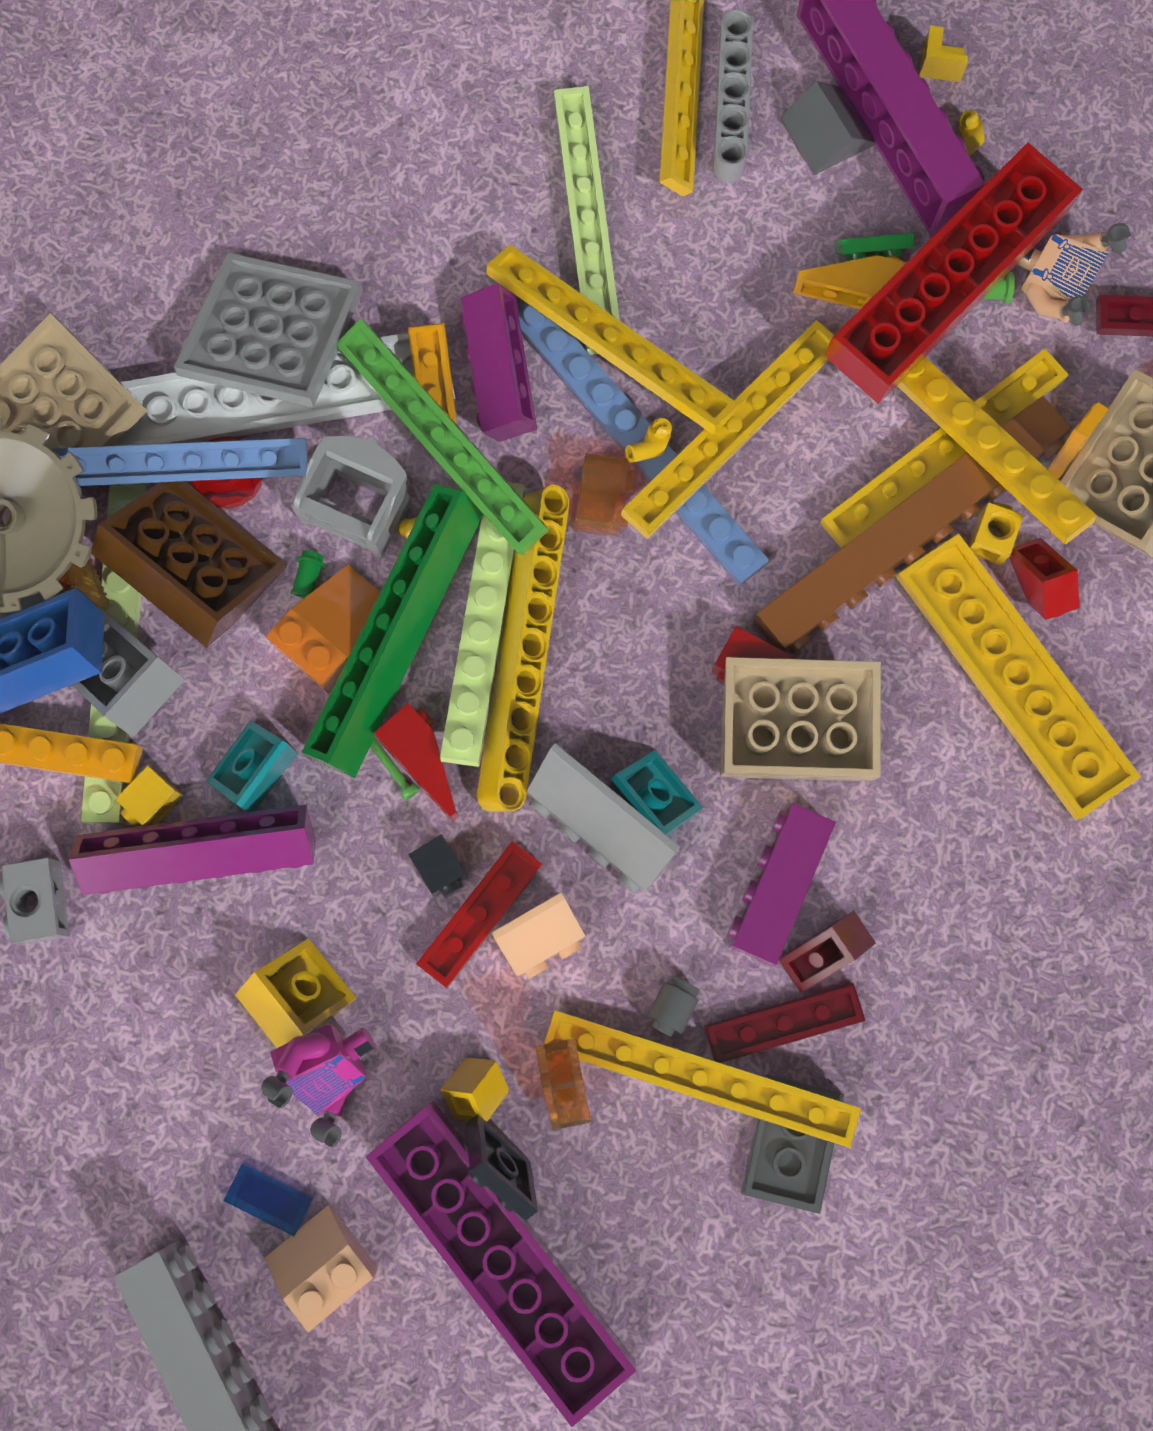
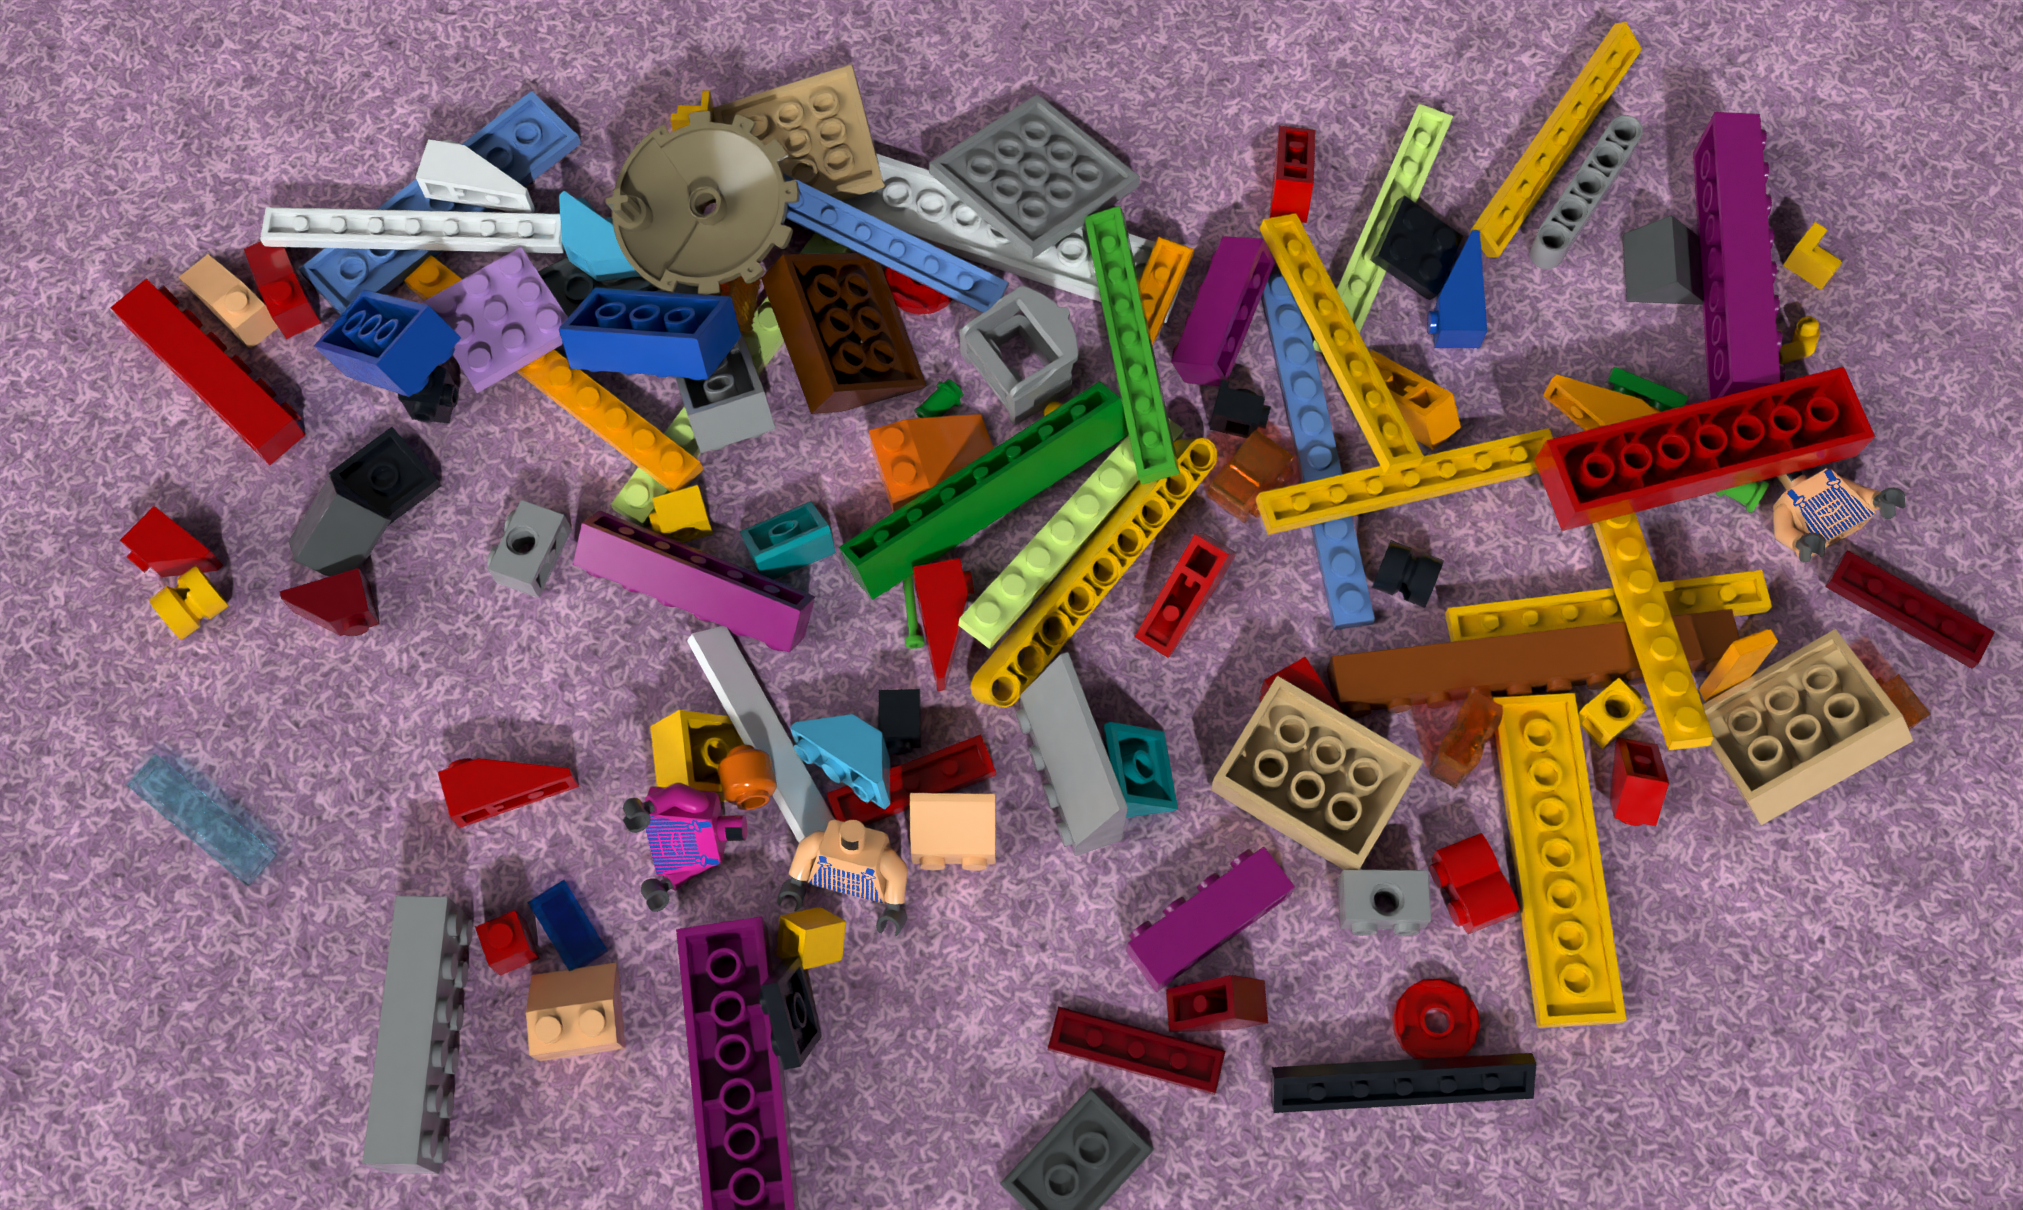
camera: 30 degrees right, 10 degrees down
(126, 1129) = (492, 787): none -> red slope
(228, 1246) = (507, 942): none -> red brick
(331, 944) = (760, 728): none -> white tile
(344, 992) = (747, 777): none -> orange head
(415, 922) = (848, 753): none -> medium azure slope
(473, 1011) = (853, 863): none -> light nougat torso
(485, 208) = (1293, 172): none -> red slope
(561, 444) = (1238, 411): none -> black brick
(563, 1083) = (893, 973): clear orange brick -> none
(607, 625) = (1185, 593): none -> red slope
(624, 220) = (1416, 248): none -> black plate
(653, 443) = (1324, 454): yellow arm -> none
(673, 1006) = (1039, 970): dark grey brick -> none
(689, 255) = (1460, 308): none -> blue slope
(708, 355) = (1423, 404): none -> light orange slope
(708, 1080) = (1028, 1052): yellow plate -> none
(775, 507) = (1408, 574): none -> black wheel
(897, 616) = (1466, 740): none -> clear orange brick
(921, 772) = (1405, 889): none -> light grey brick
(967, 735) = (1474, 884): none -> red brick
(976, 868) = (1446, 998): none -> red tile
(1002, 927) = (1403, 1082): none -> black plate

